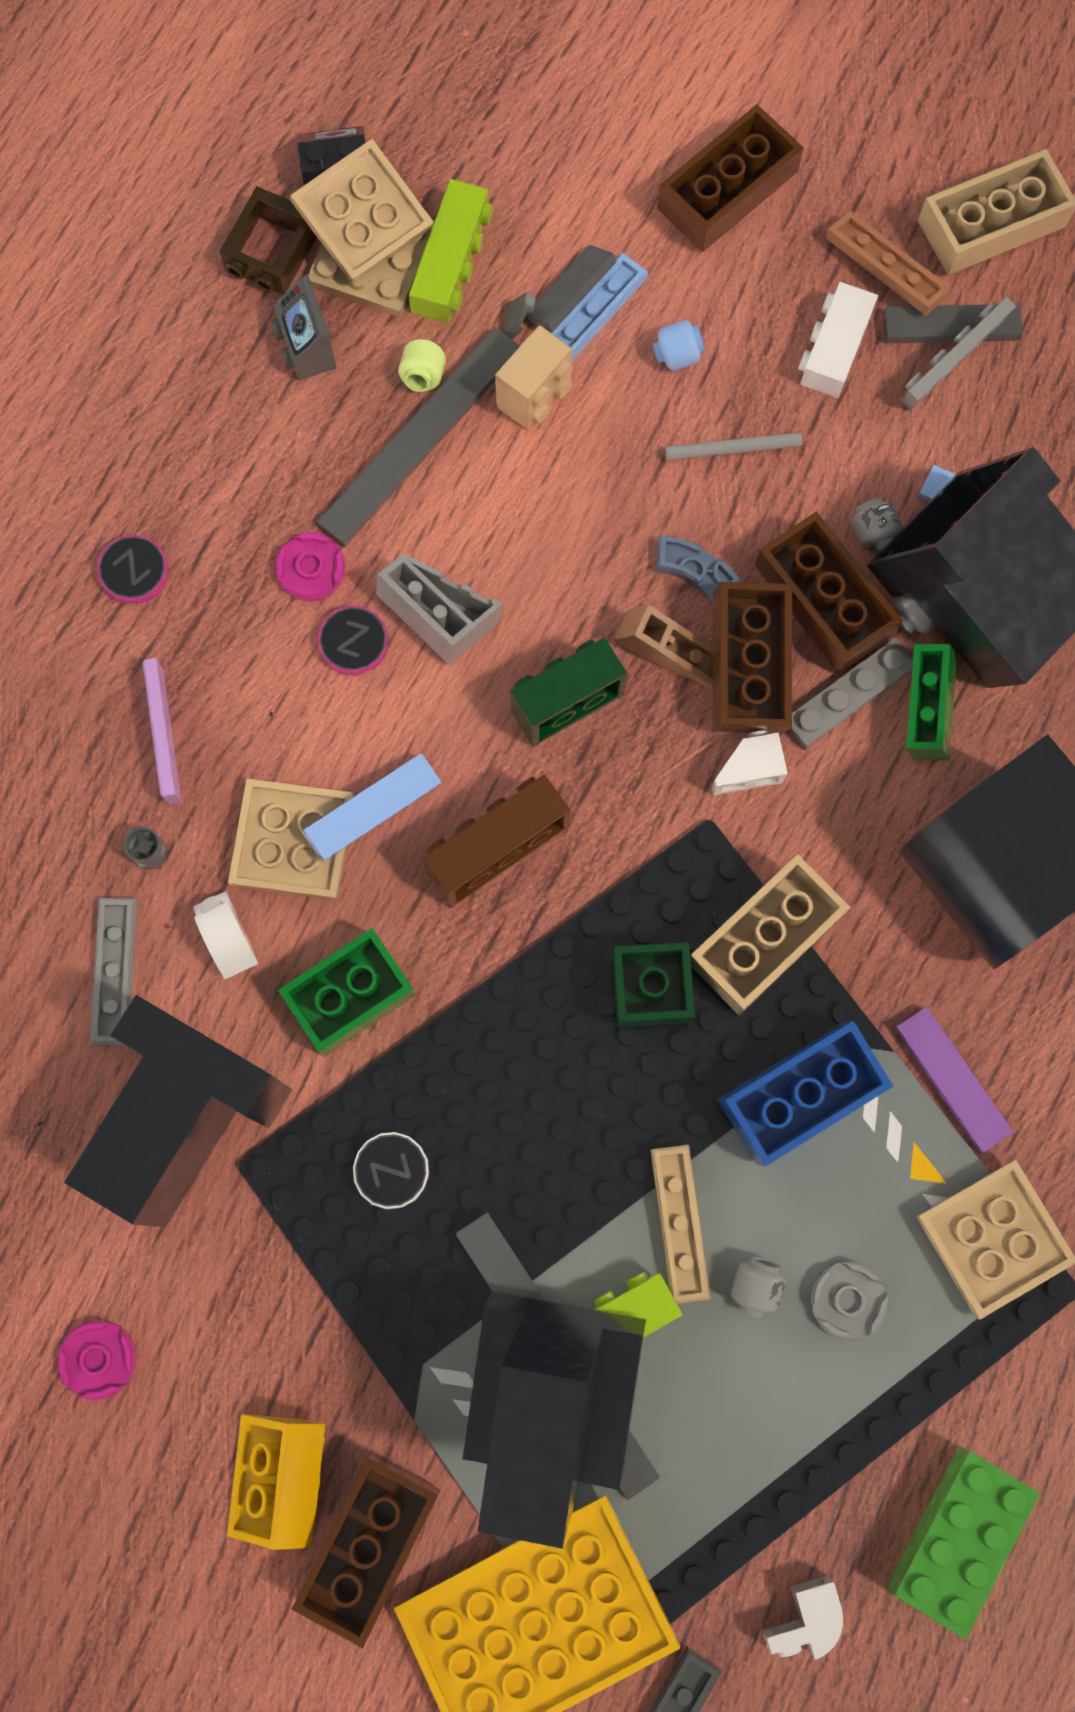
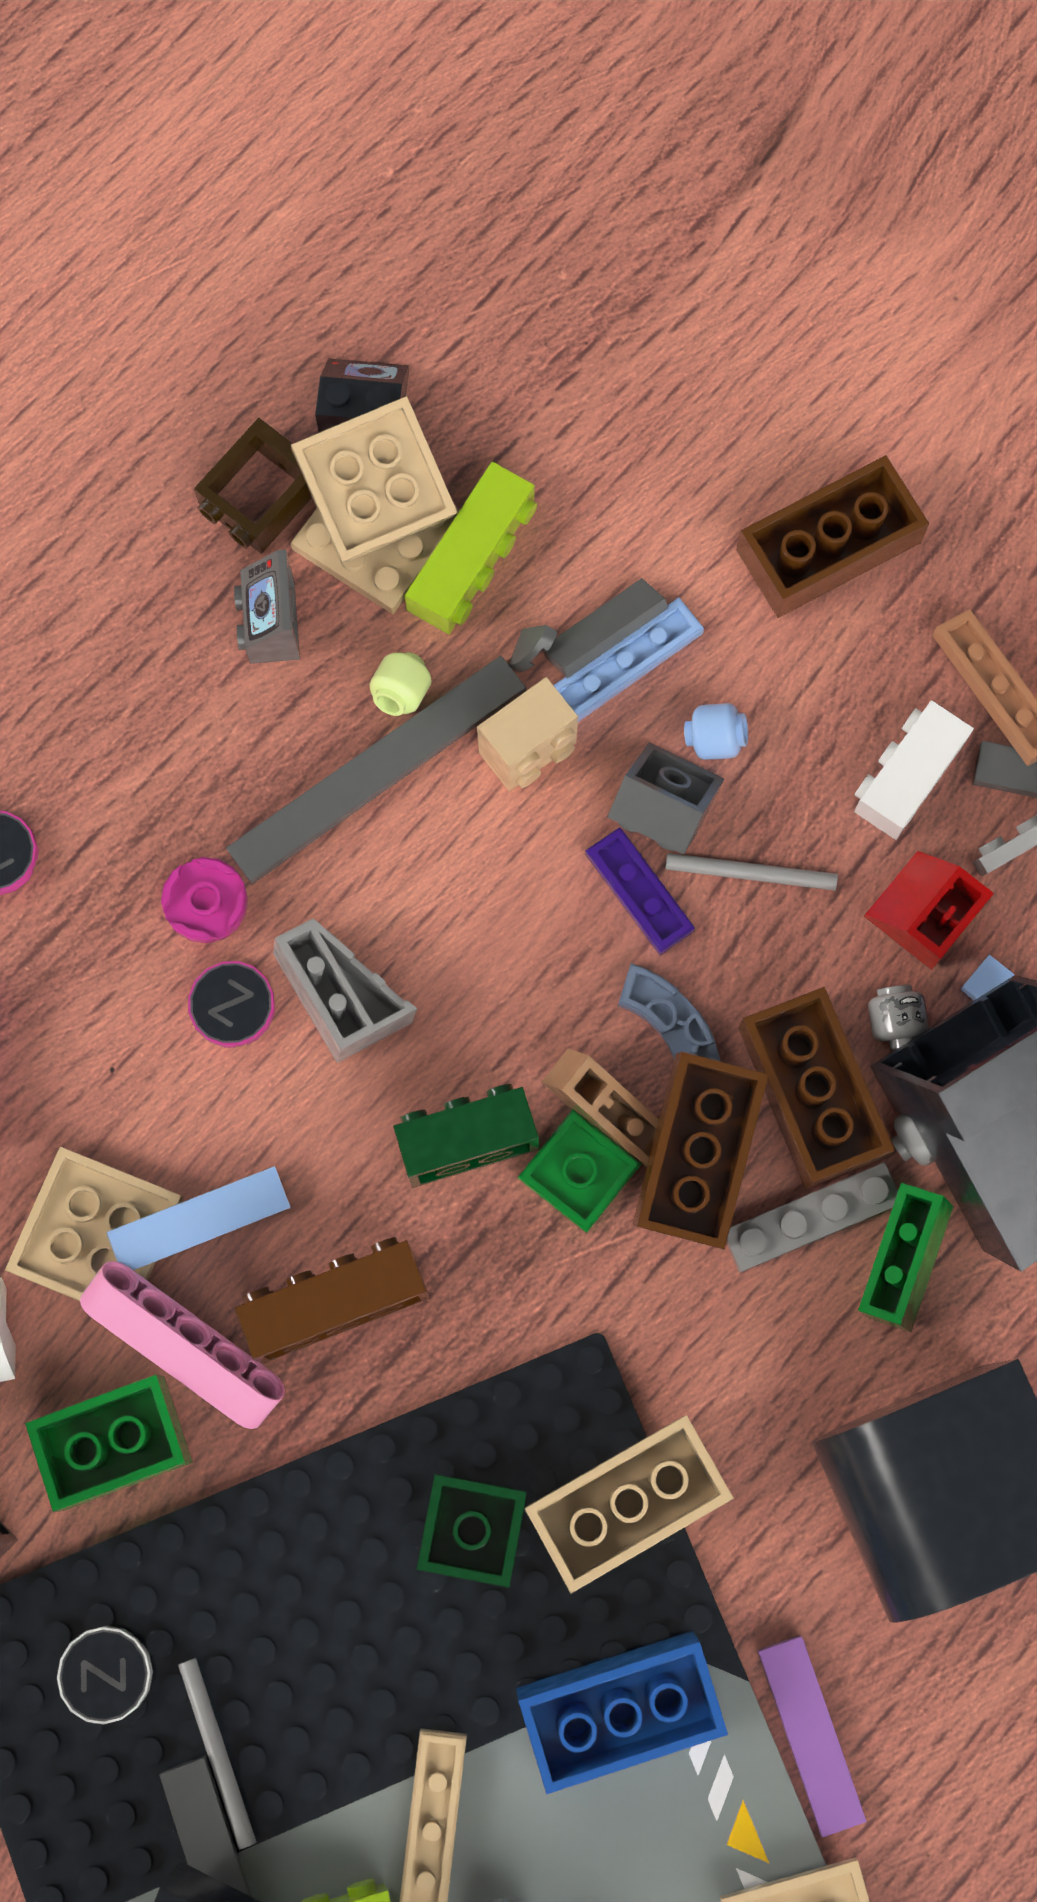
camera: 15 degrees right, 0 degrees up
(385, 902) = (182, 1344): none -> bright pink beam
(496, 1208) = (217, 1754): none -> light grey bar
(651, 480) = (640, 891): none -> dark purple tile
(652, 406) = (665, 798): none -> dark grey slope
(660, 702) = (579, 1171): none -> green tile
(753, 764) = (669, 1278): white slope -> none
(878, 438) = (928, 906): none -> red slope

